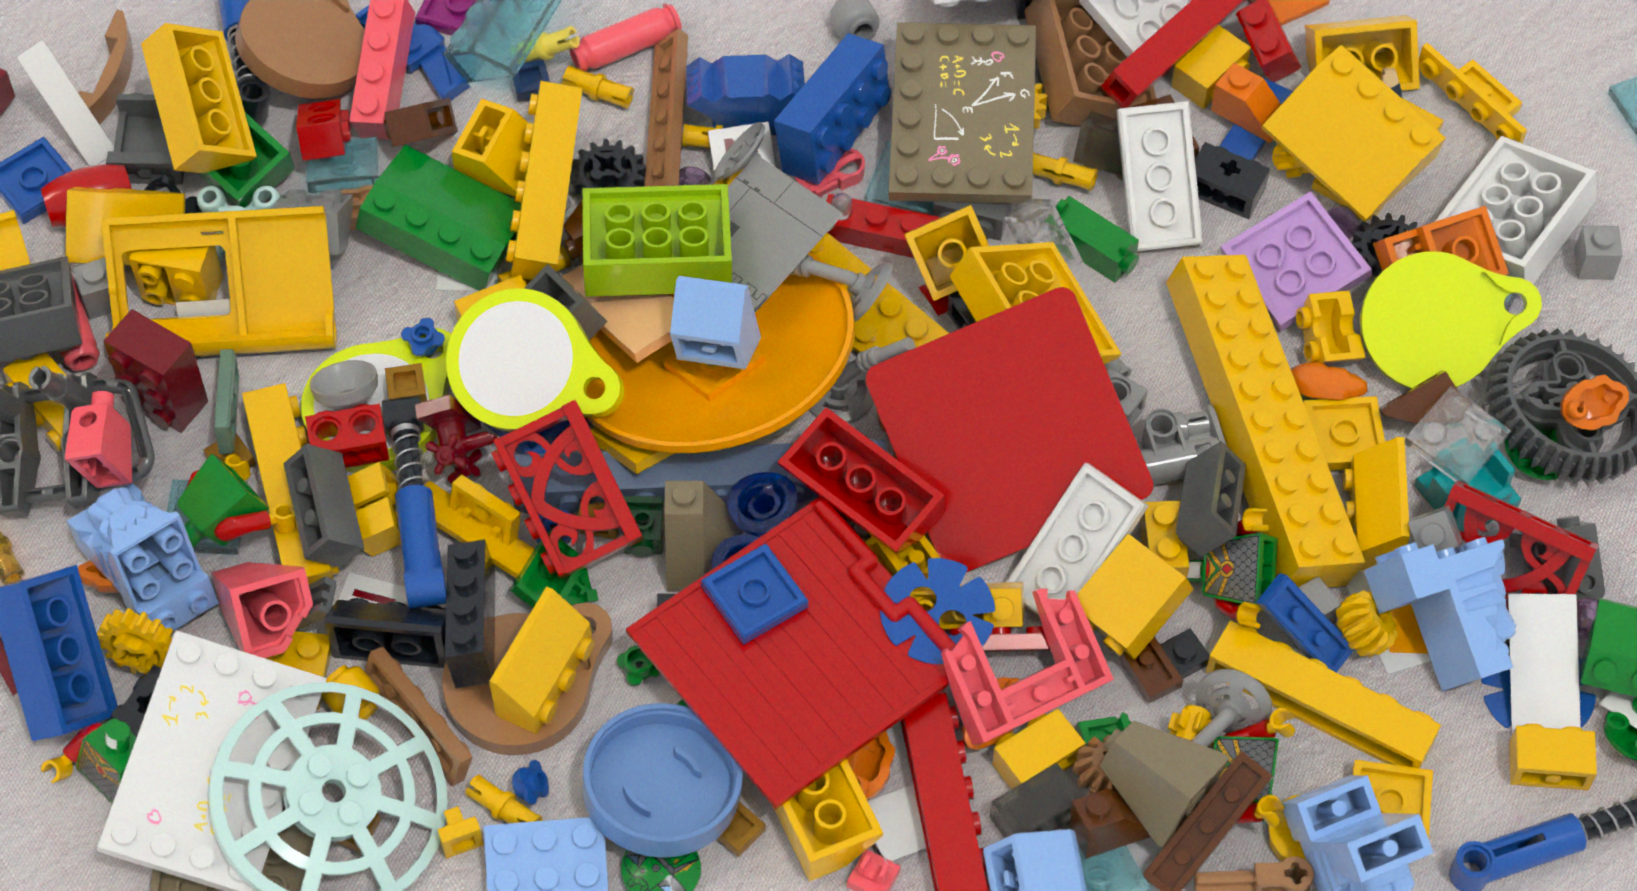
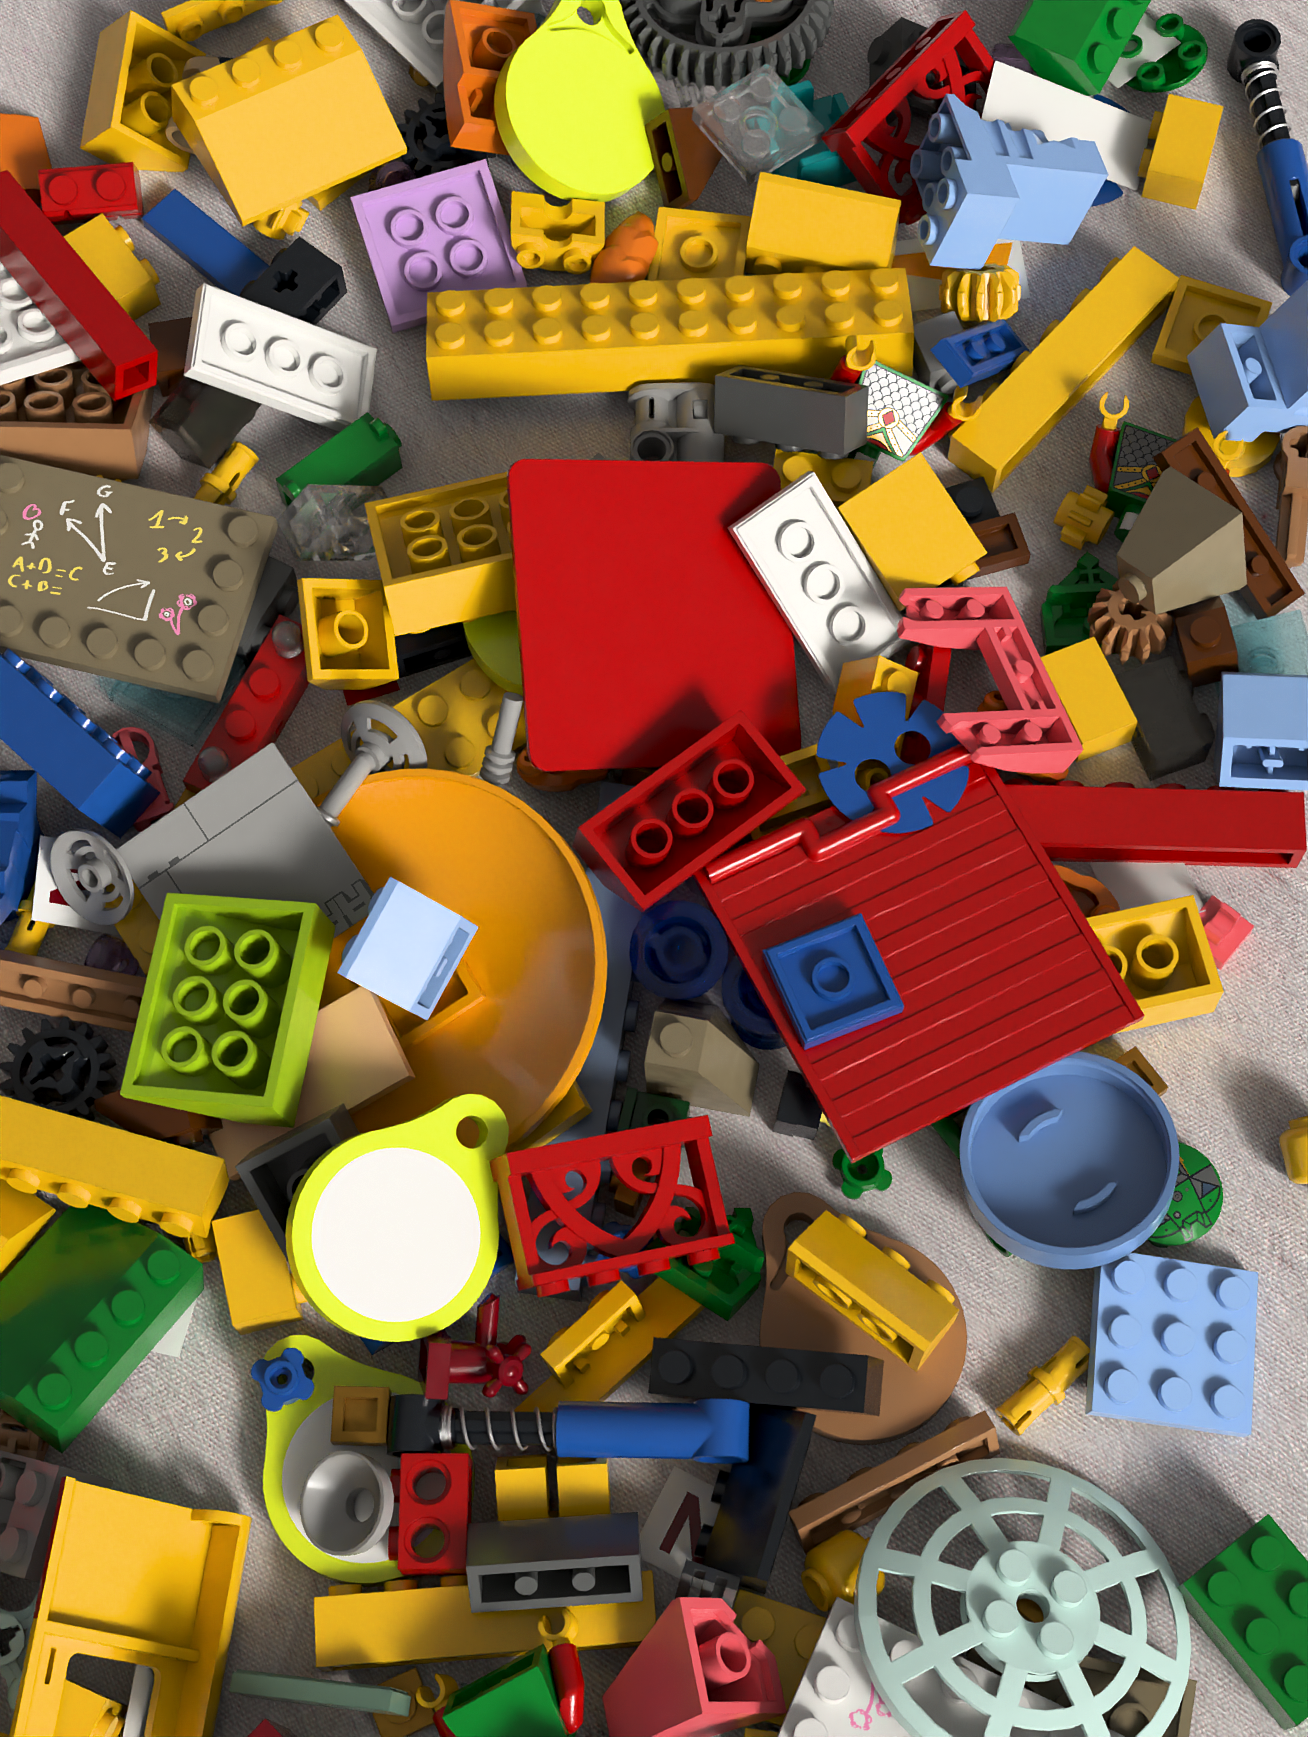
camera: 75 degrees left, 10 degrees up
(459, 834) = (1084, 1450): yellow tile -> none
(530, 782) = (1022, 1341): blue plate -> none
(1232, 704) = (1073, 466): light grey dish -> none
(1244, 100) = (186, 238): orange slope -> none
(1436, 529) = (895, 172): light grey brick -> none

